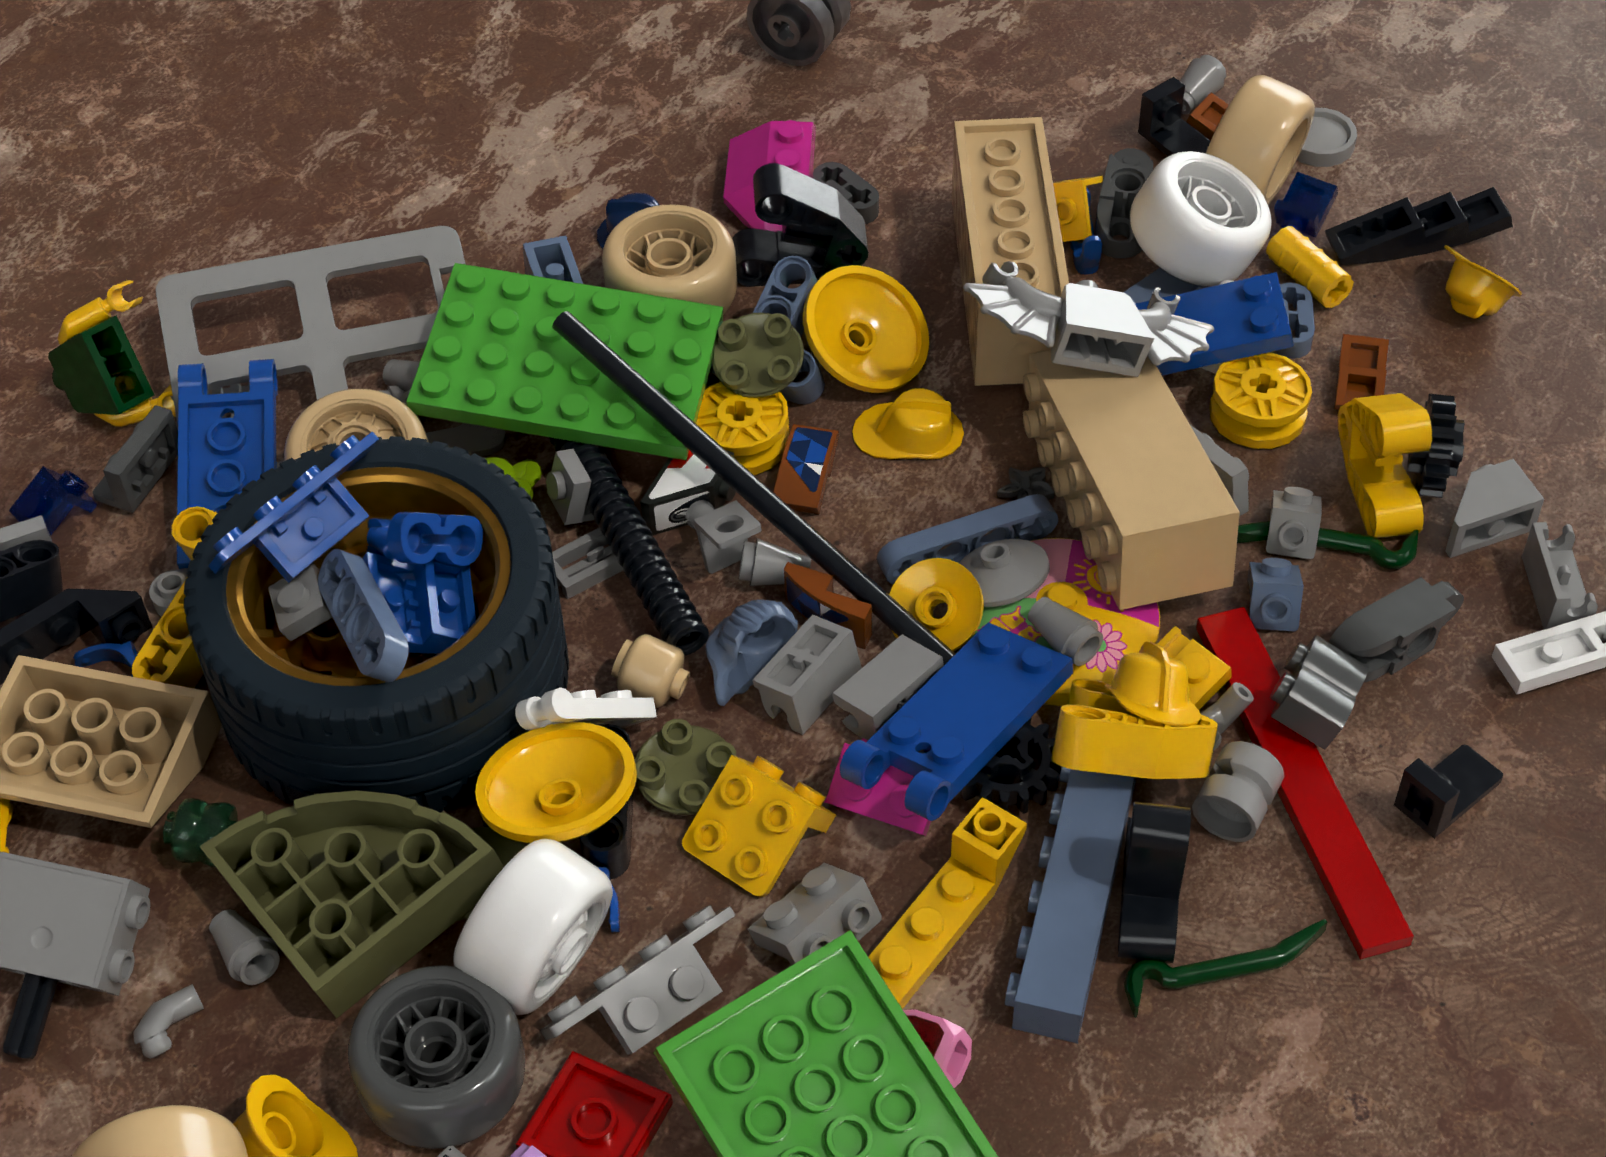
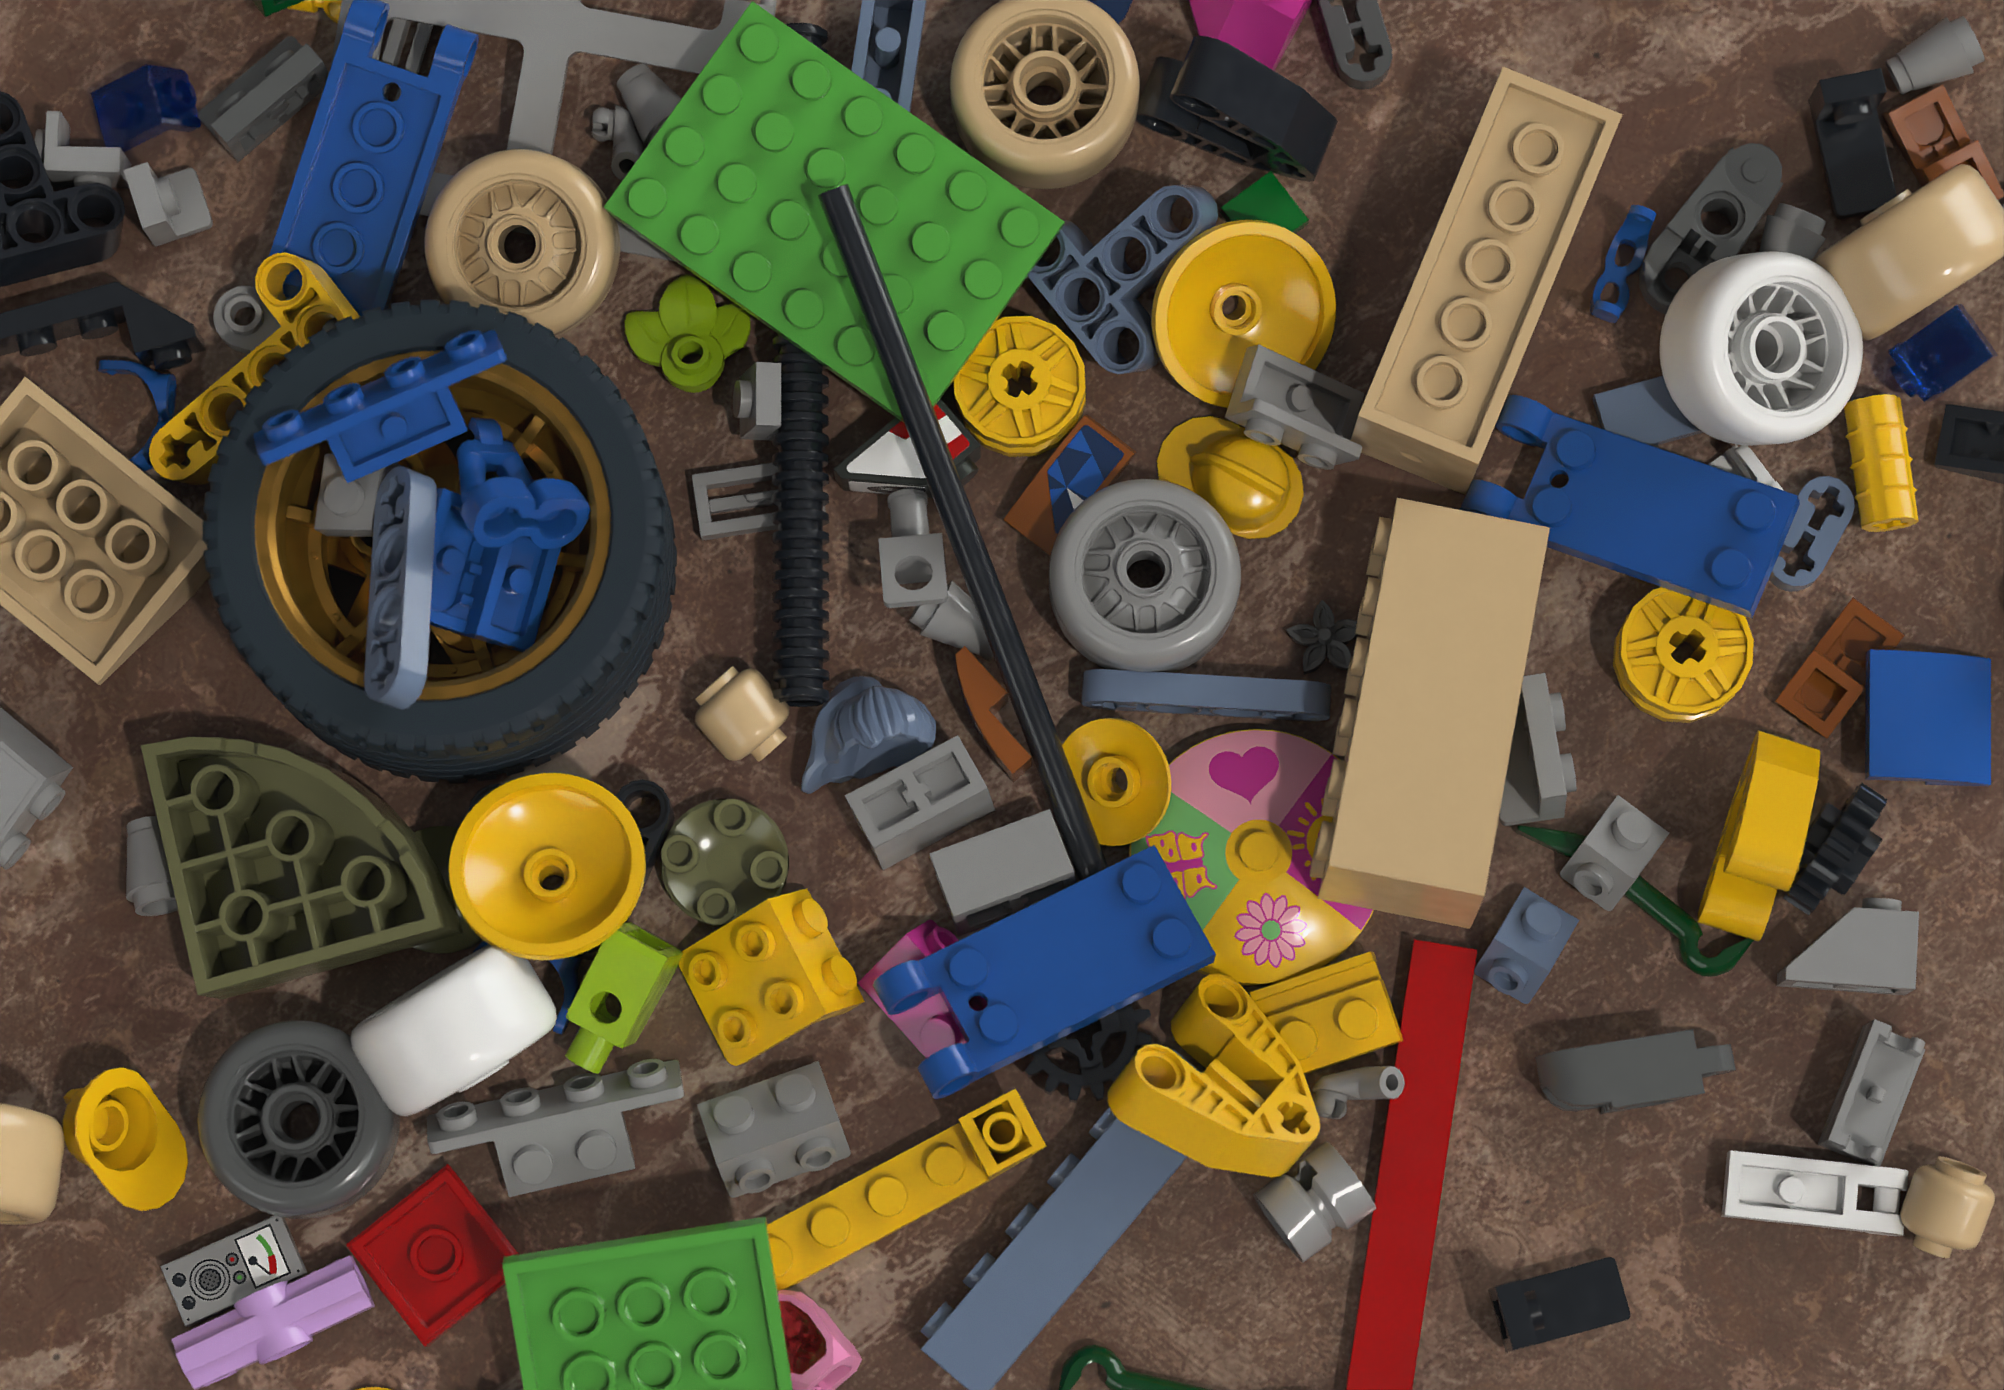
camera: 25 degrees right, 30 degrees up
(86, 544) = (168, 205): none -> light grey bracket
(160, 1016) = (35, 916): light grey arm -> none
(194, 825) = (160, 700): clear green piece -> none
(583, 706) = (632, 763): white plate -> none
(651, 865) = (637, 972): none -> lime torso
(757, 354) = (1077, 311): olive dish -> none
(885, 481) = (1138, 626): none -> light grey wheel
(931, 366) = (1295, 408): none -> light grey bracket
(1007, 570) = (1223, 793): light grey dish -> none
(1066, 630) = (1231, 907): light grey cone -> none
(1074, 208) = (1620, 212): yellow bracket -> none
(1089, 323) = (1476, 517): light grey torso -> none
(1152, 881) = (1151, 1269): black beam -> none
(1154, 687) = (1270, 1060): yellow piece -> none
(1317, 691) = (1482, 1118): dark grey brick -> none
(1434, 366) = (1928, 718): none -> blue slope

